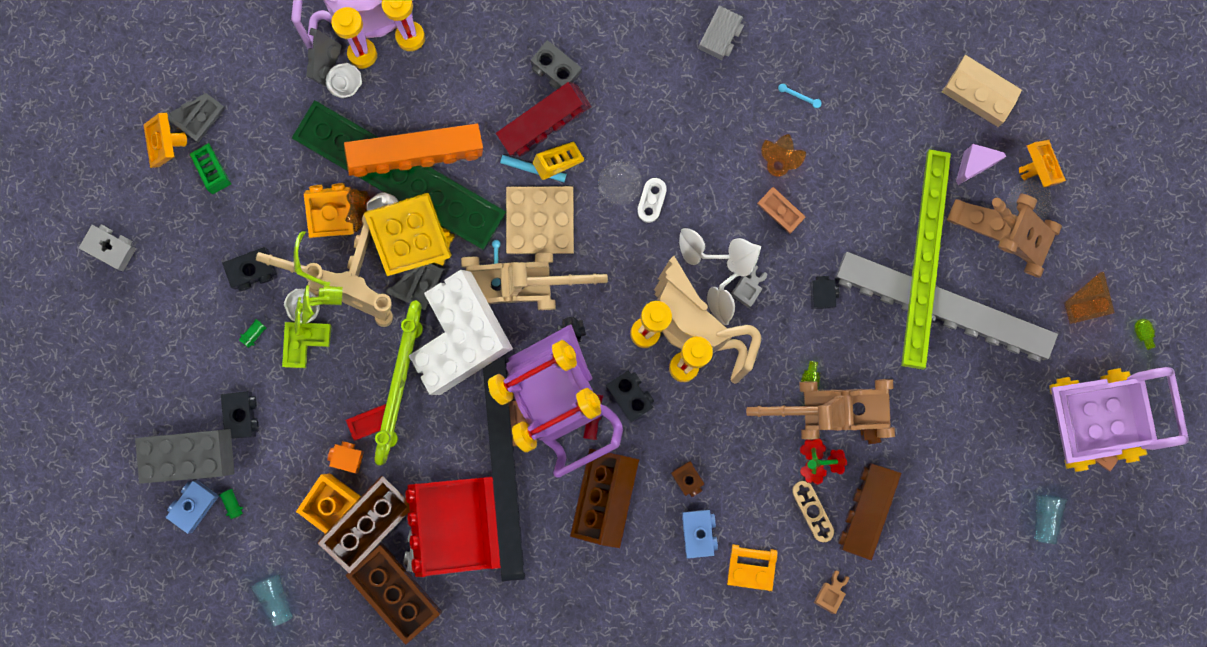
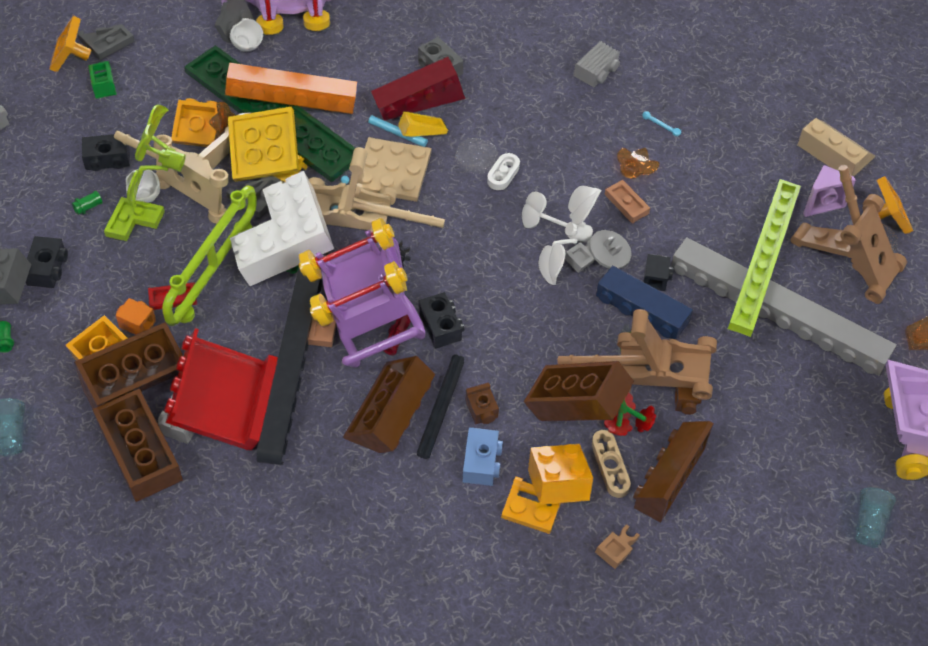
camera: 10 degrees right, 30 degrees down
(650, 485) = (440, 407): none -> black axle
(691, 328) = (515, 259): tan piece -> none
(772, 541) = (560, 474): none -> light orange brick
(774, 274) = (610, 249): none -> light grey piece
(775, 464) = (579, 391): none -> reddish brown brick
(817, 333) = (631, 294): none -> dark blue brick

